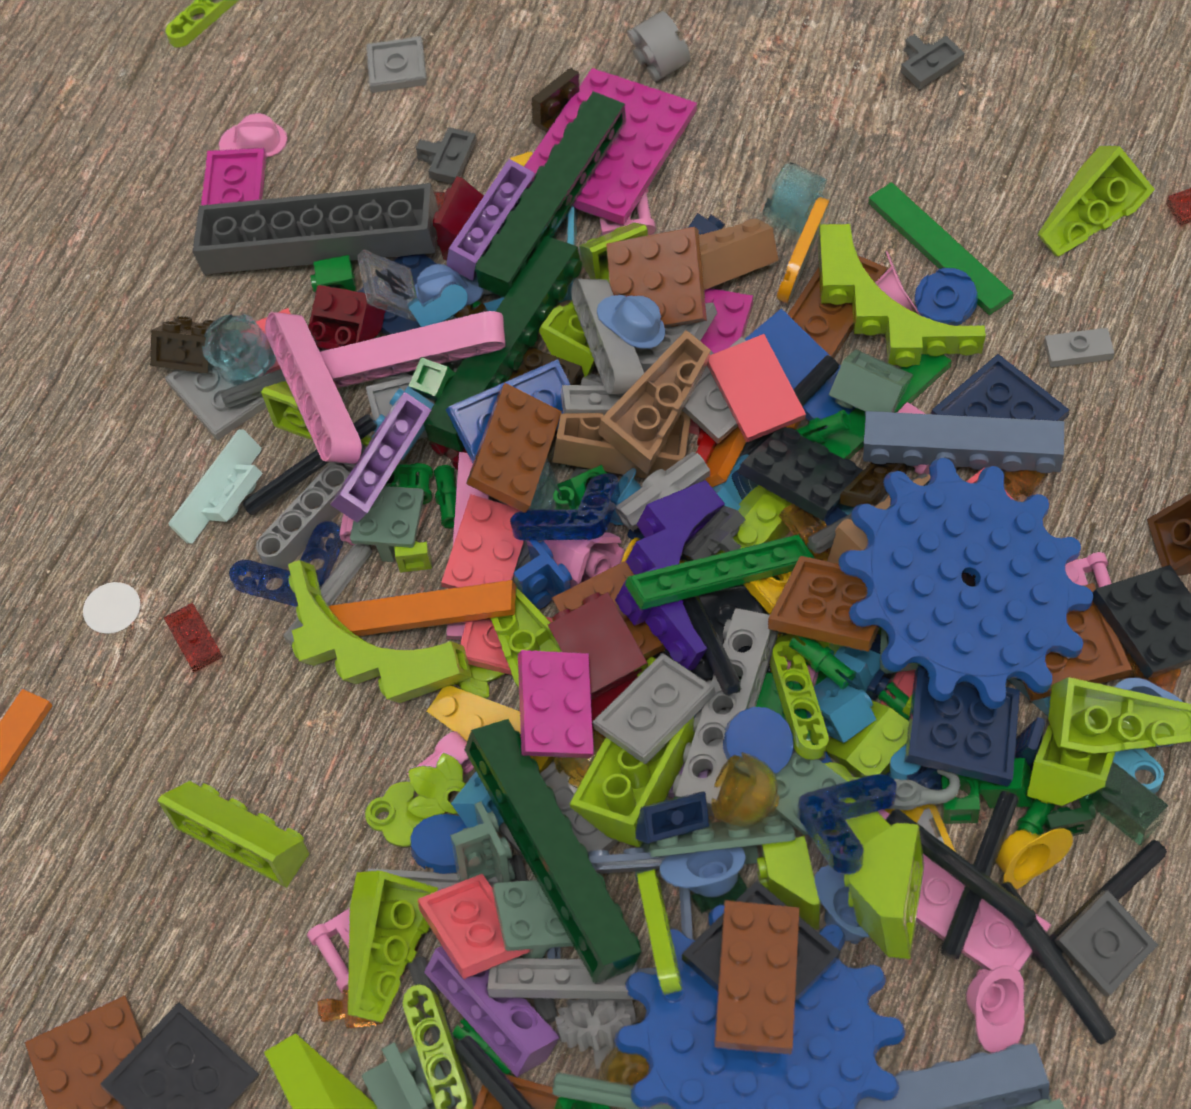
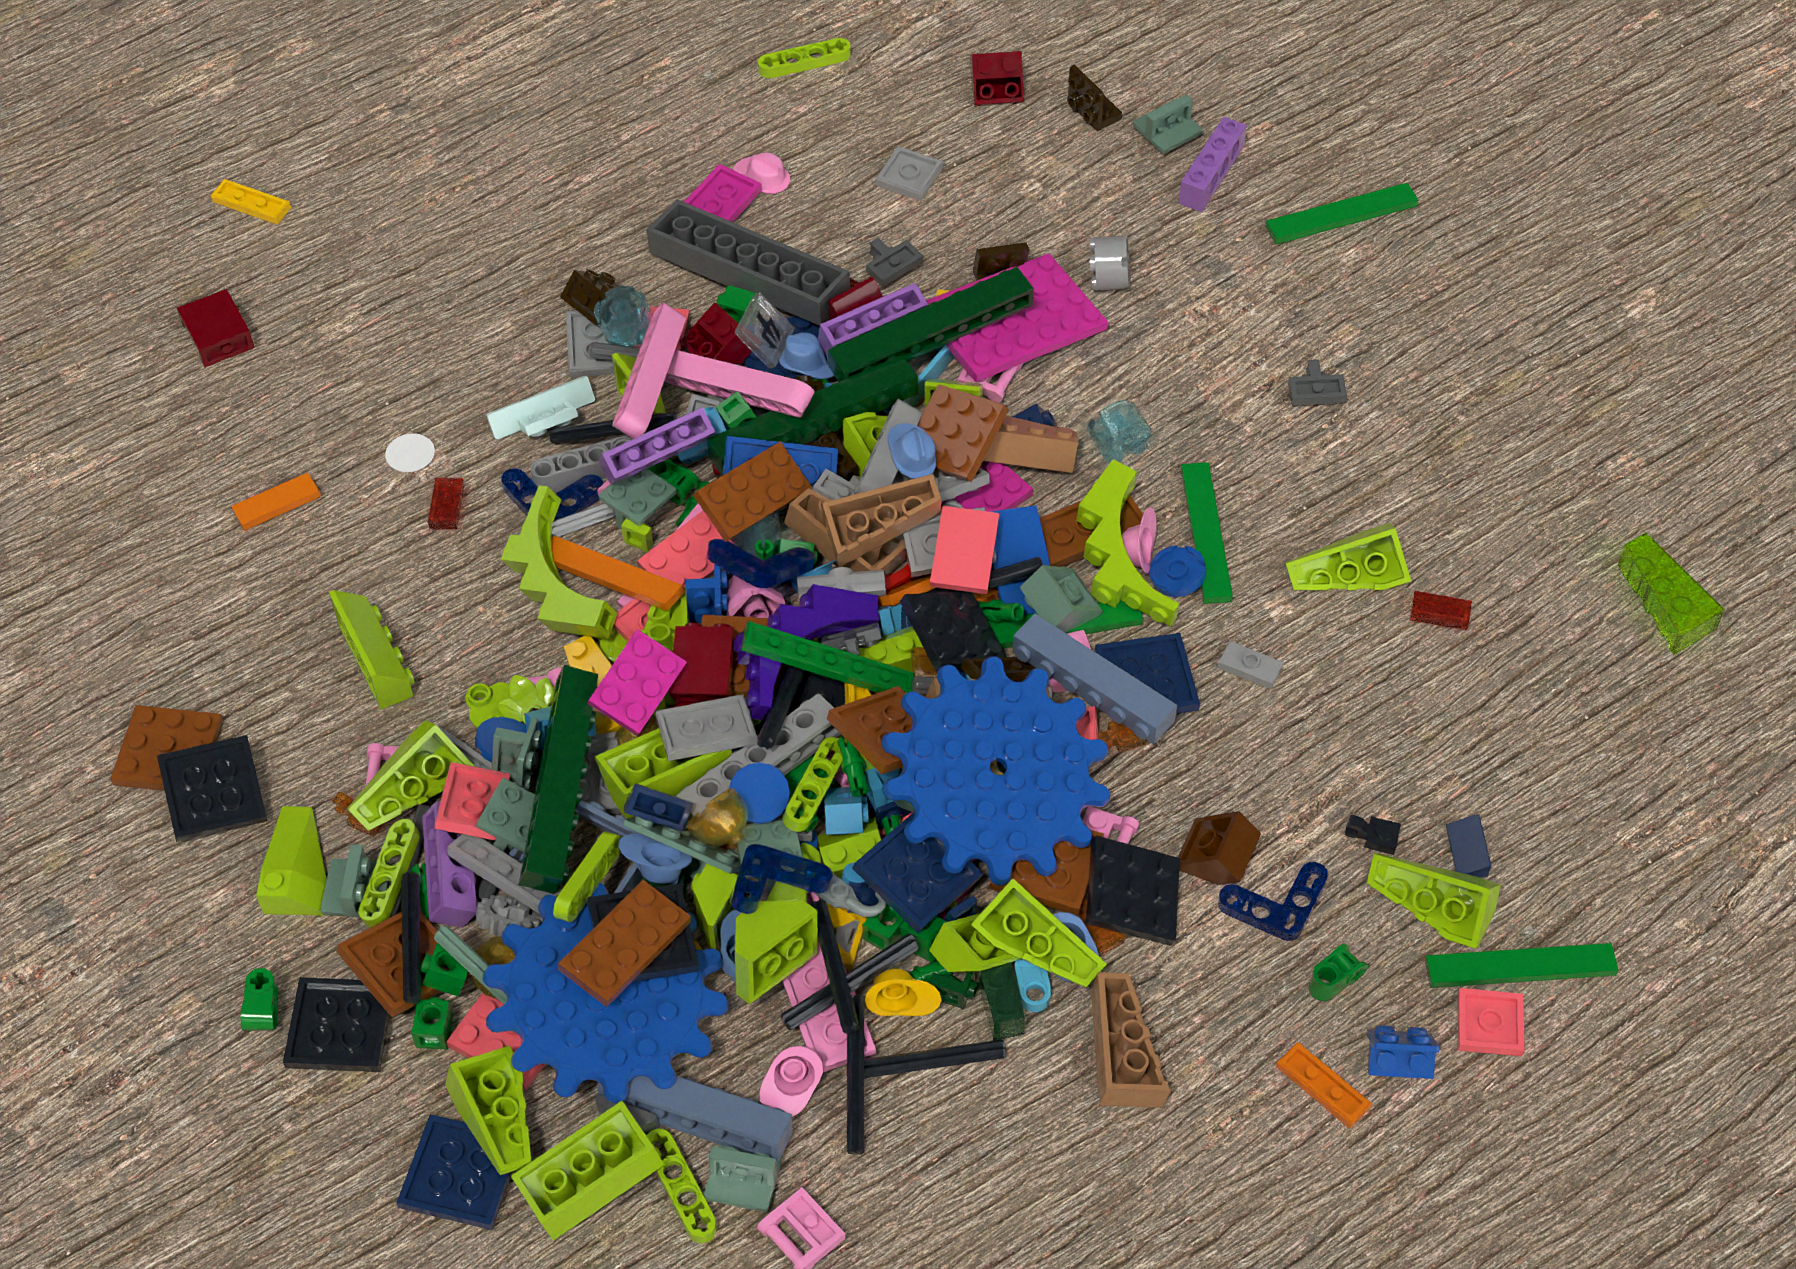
camera: 25 degrees right, 5 degrees down
(440, 307) = (797, 365): dark azure leg -> none
(803, 250) = (1082, 477): light orange tile -> none
(1106, 943) = (905, 1085): dark grey plate -> none

